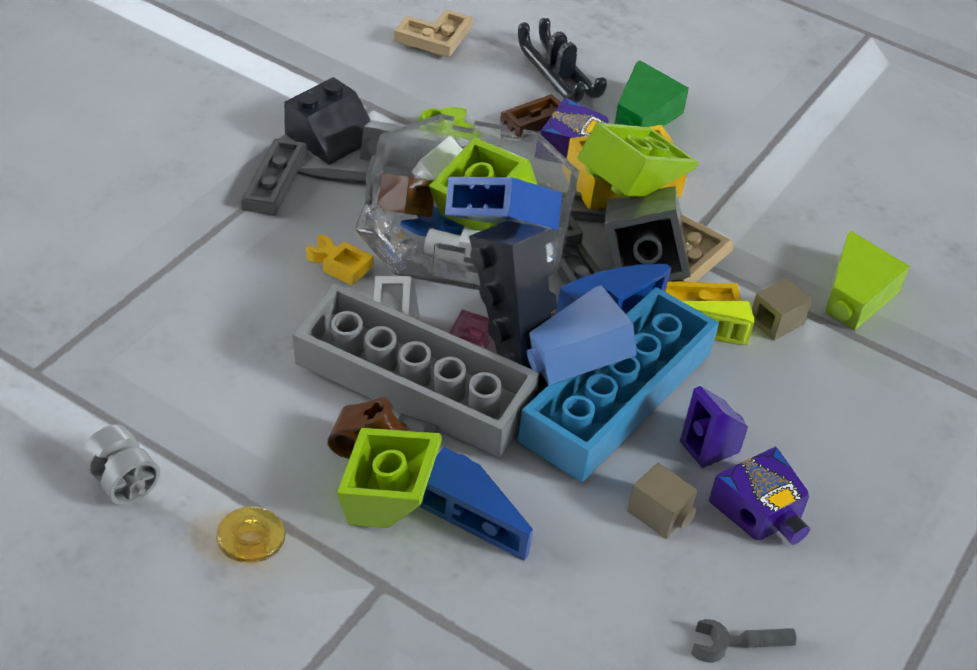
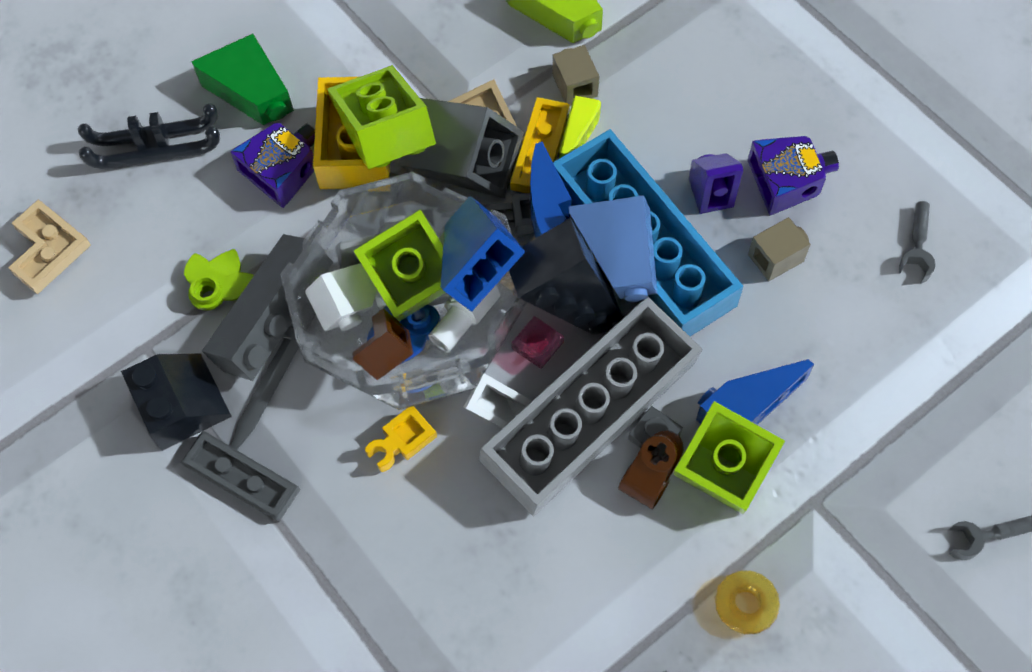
camera: 65 degrees left, 20 degrees up
(530, 115) = (228, 212): reddish brown tile -> none

